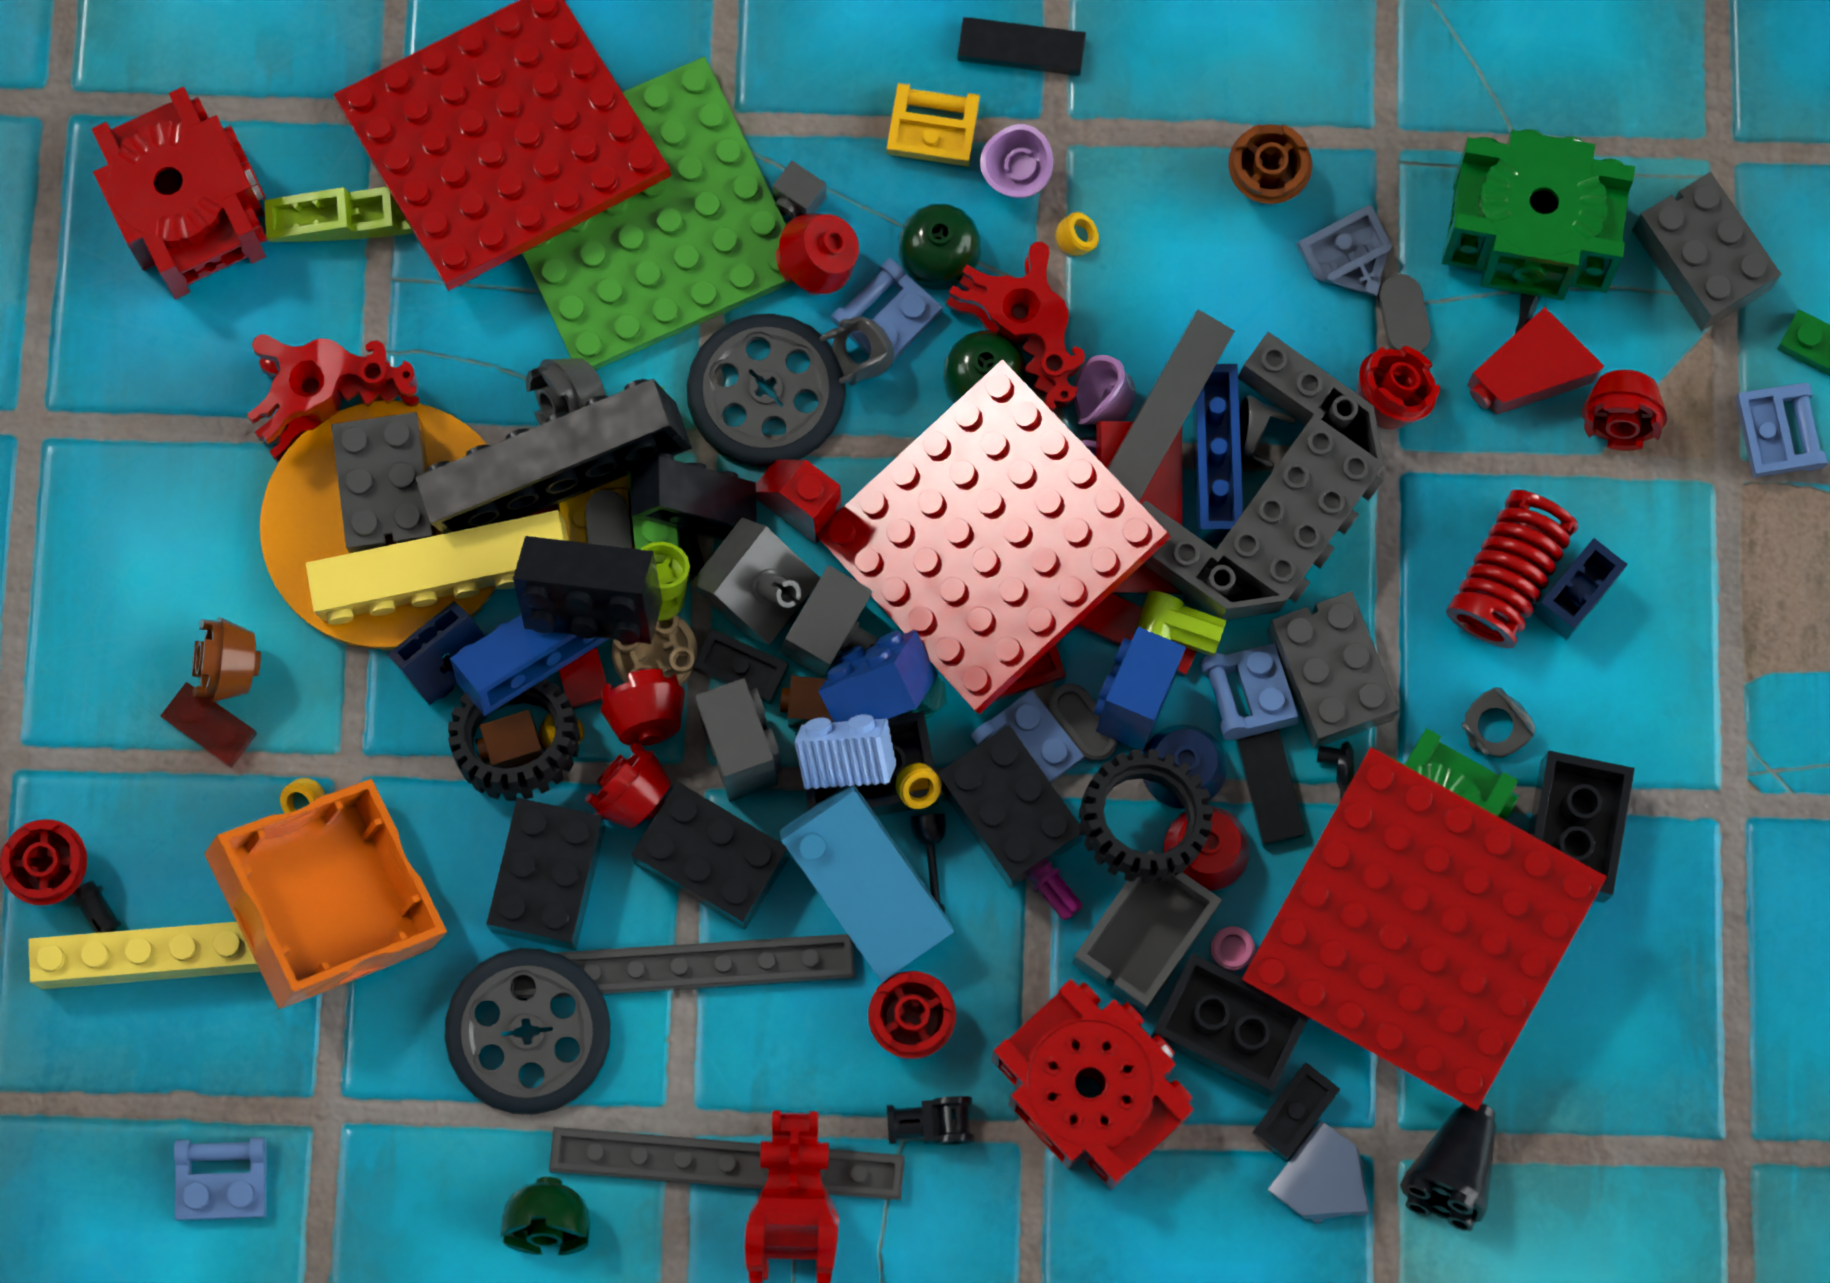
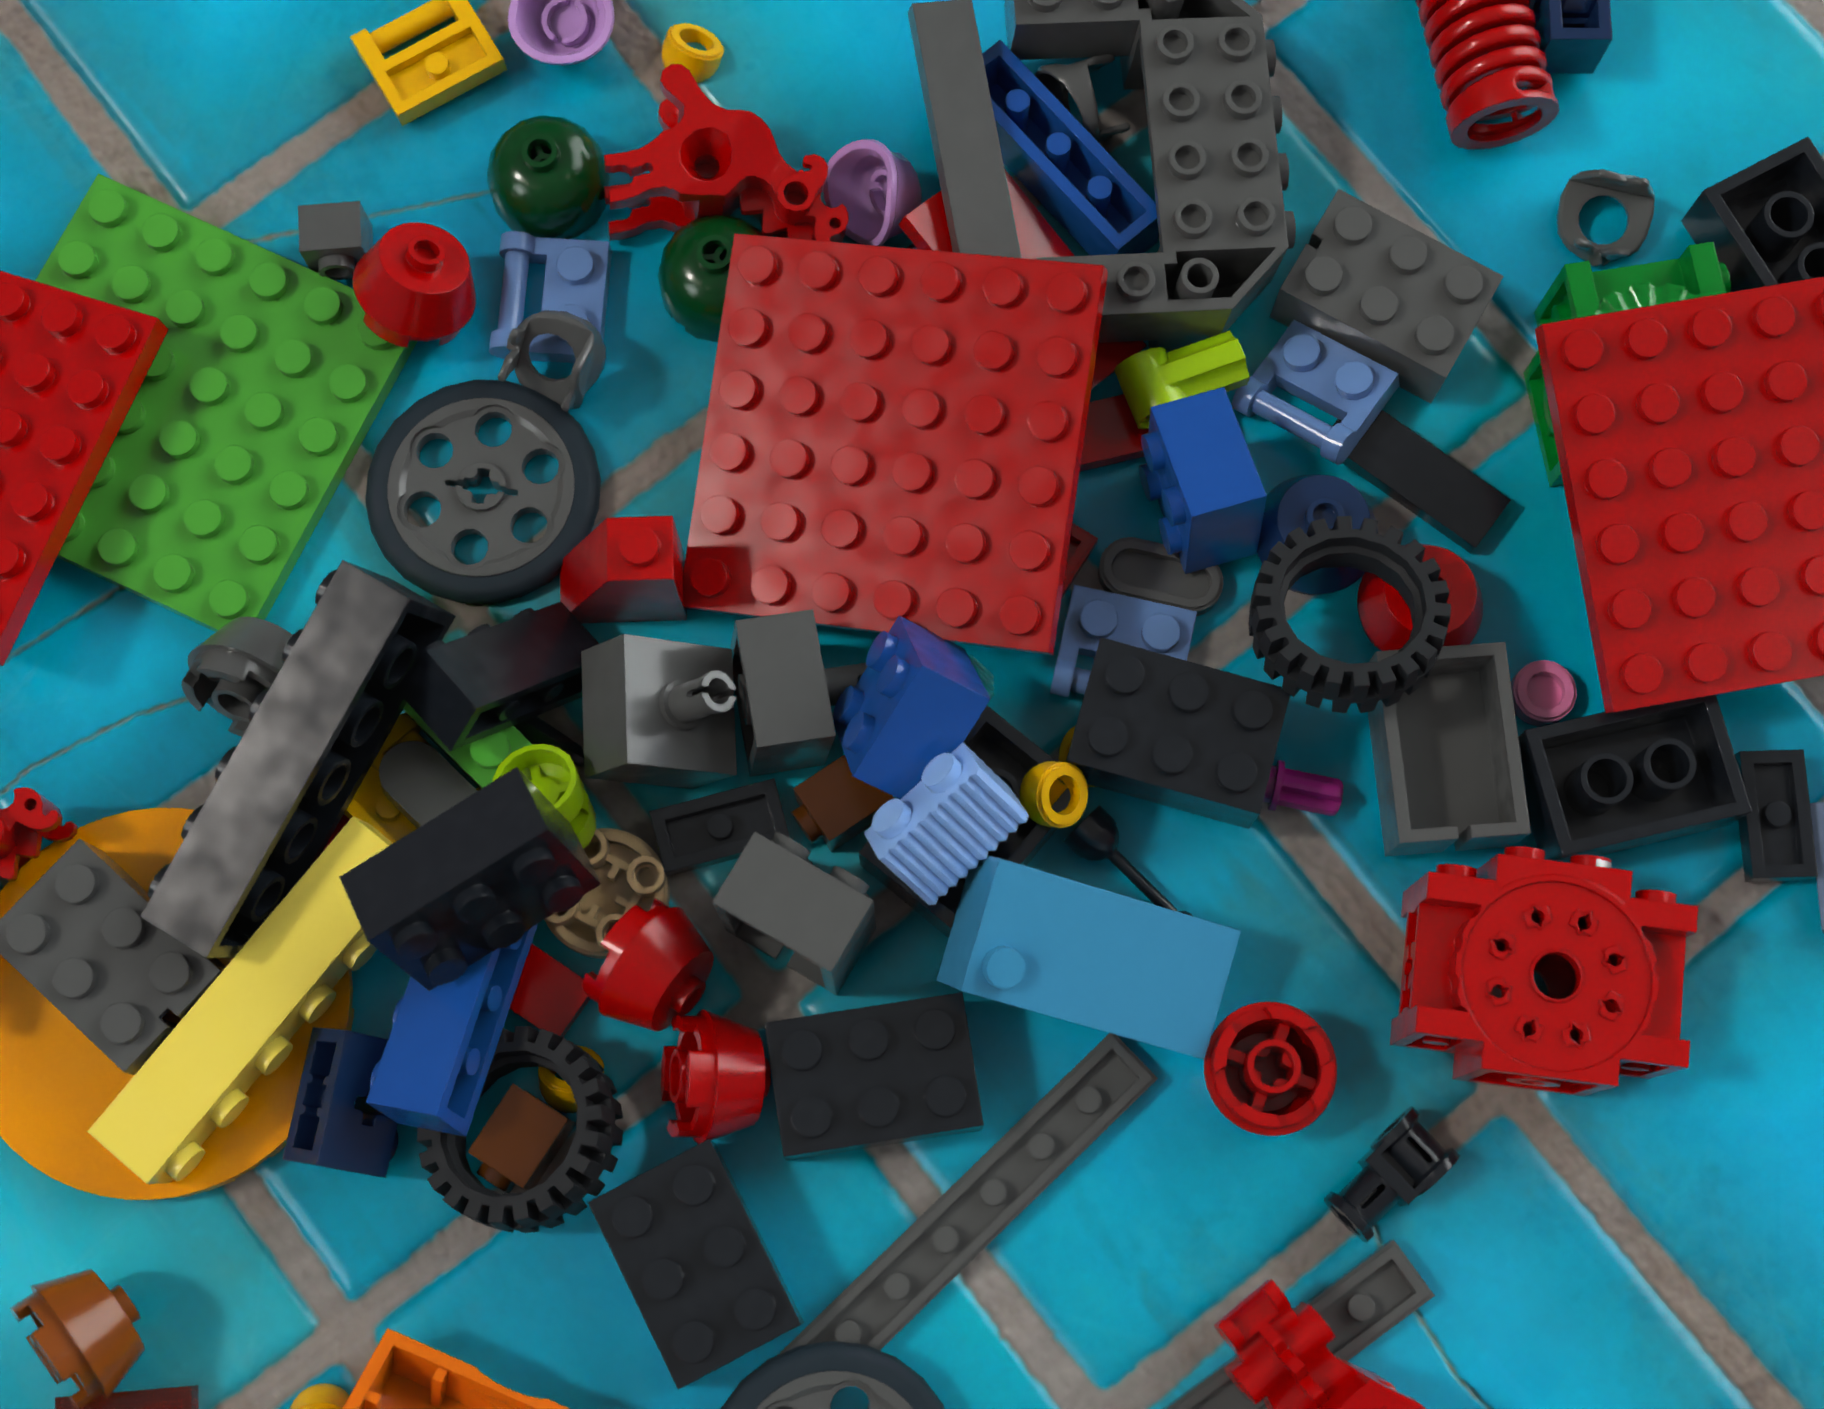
camera: 40 degrees left, 0 degrees up
(1344, 759) = (1494, 401): black bar -> none

